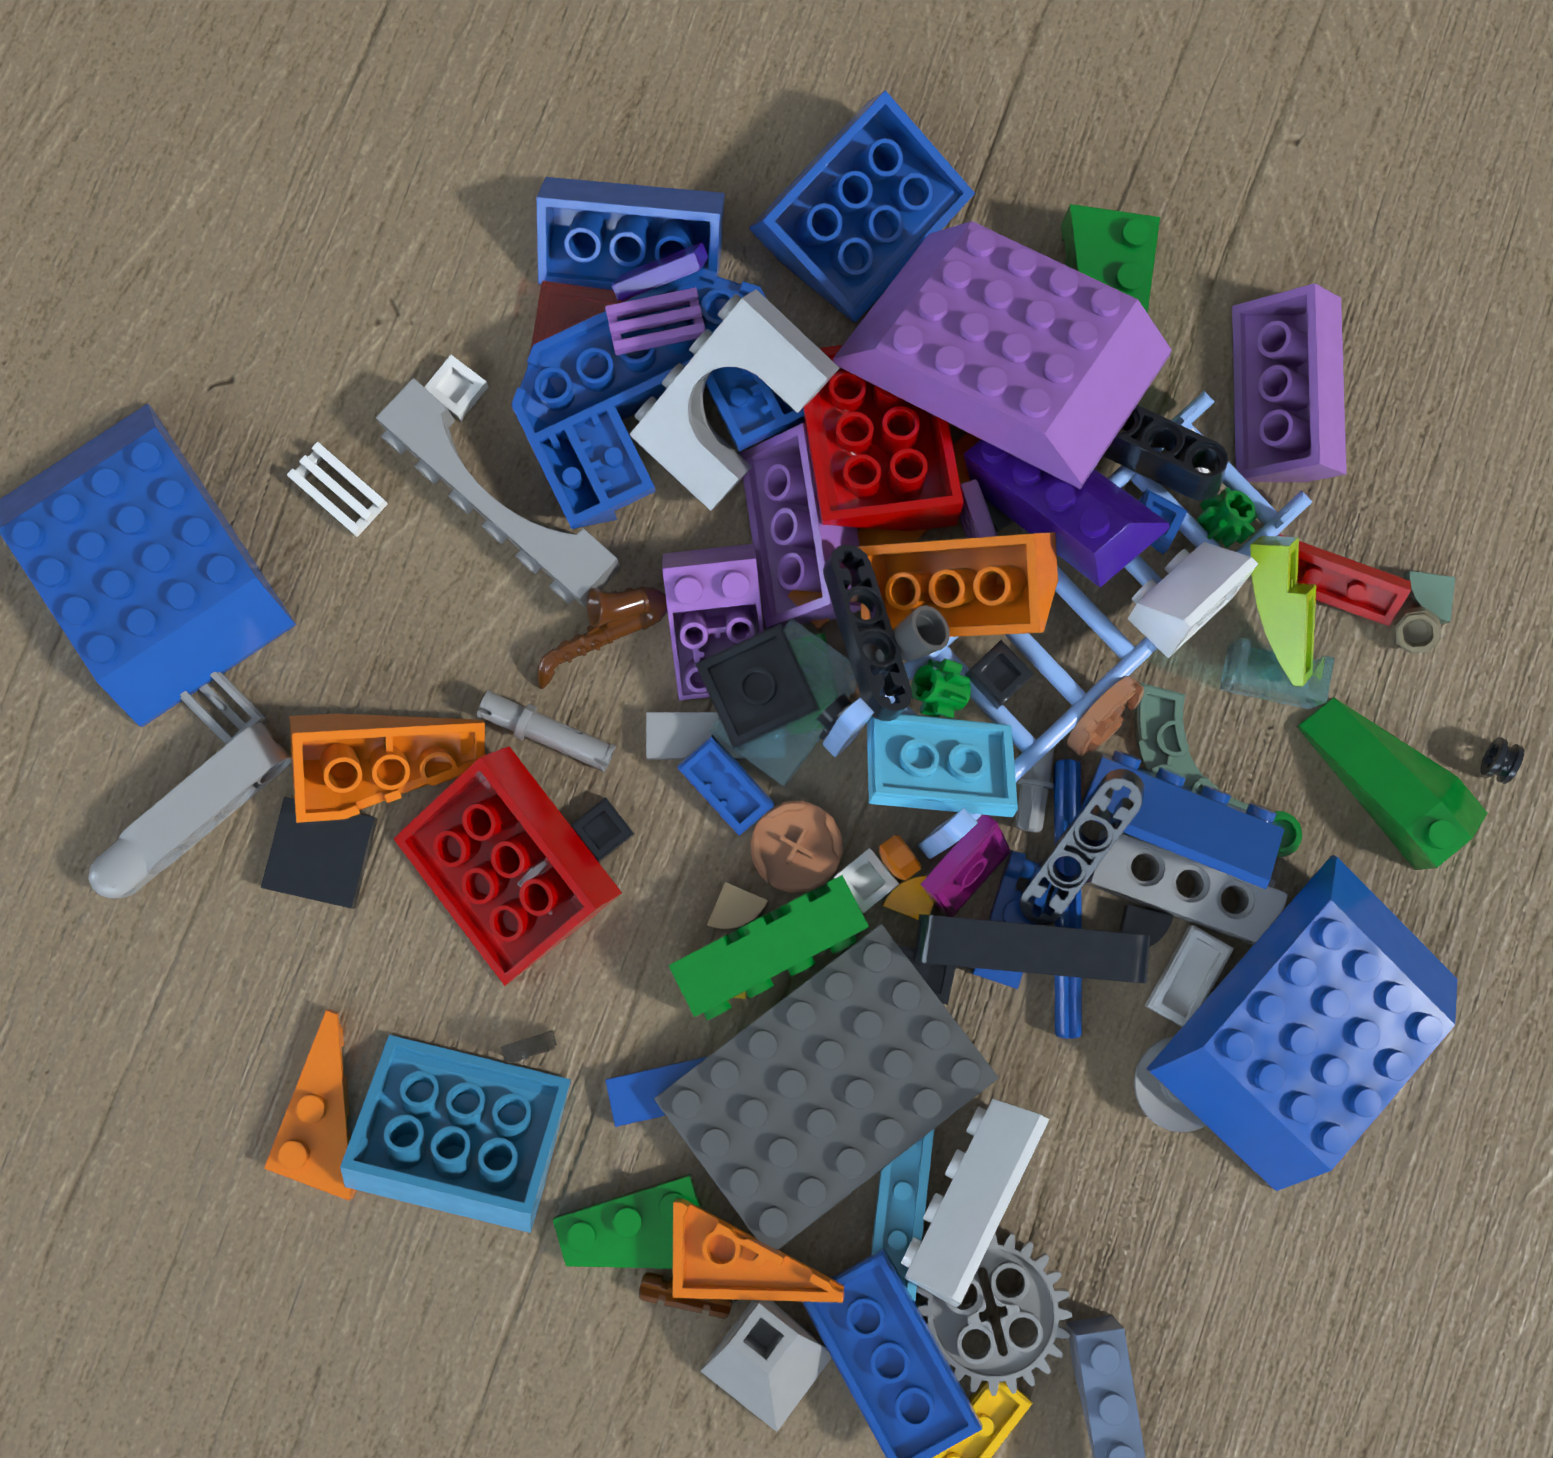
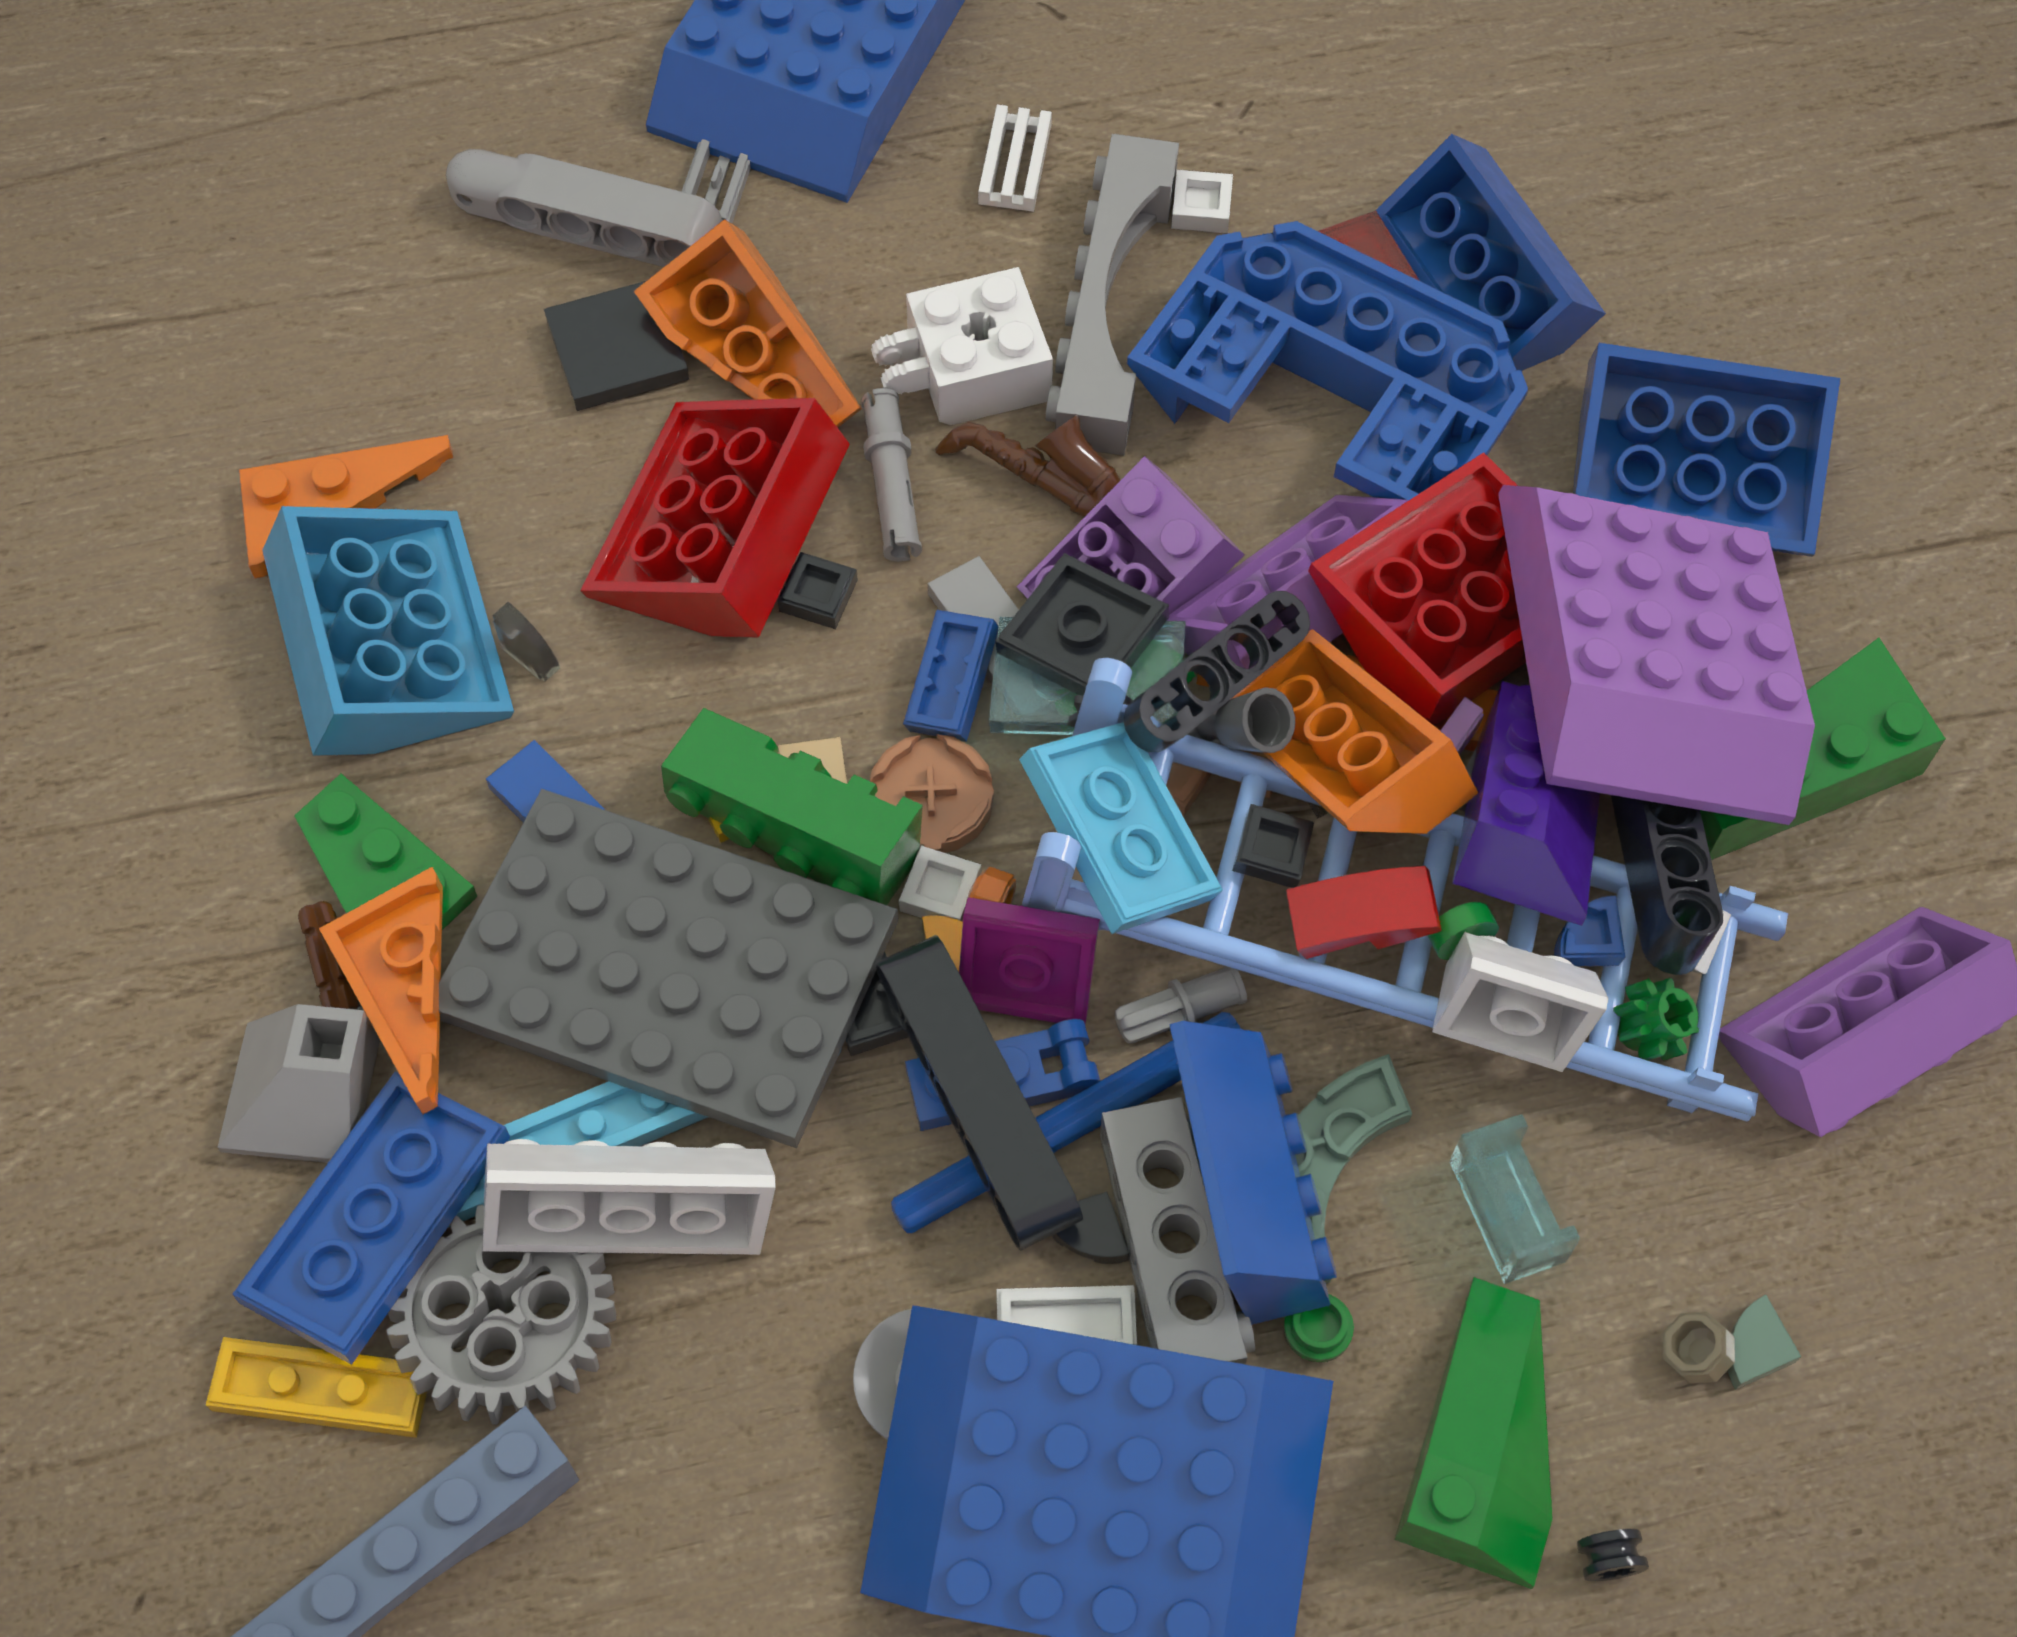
camera: 60 degrees right, 20 degrees down
(500, 642) = (971, 348): none -> white hinge
(654, 304) = (1416, 304): medium lavender tile -> none
(660, 272) = (1471, 291): tile -> none
(750, 338) = (1318, 392): arch -> none
(941, 688) = (1211, 787): green gear -> none
(1079, 650) = (1363, 907): none -> red slope
(1084, 850) = (1130, 1041): beam -> none
(1104, 716) = (1315, 1015): nougat tile -> none
(1122, 598) = (1468, 918): none -> green tile
(1285, 605) = (1597, 1139): lime slope -> none
(1351, 584) = (1683, 1206): red plate -> none

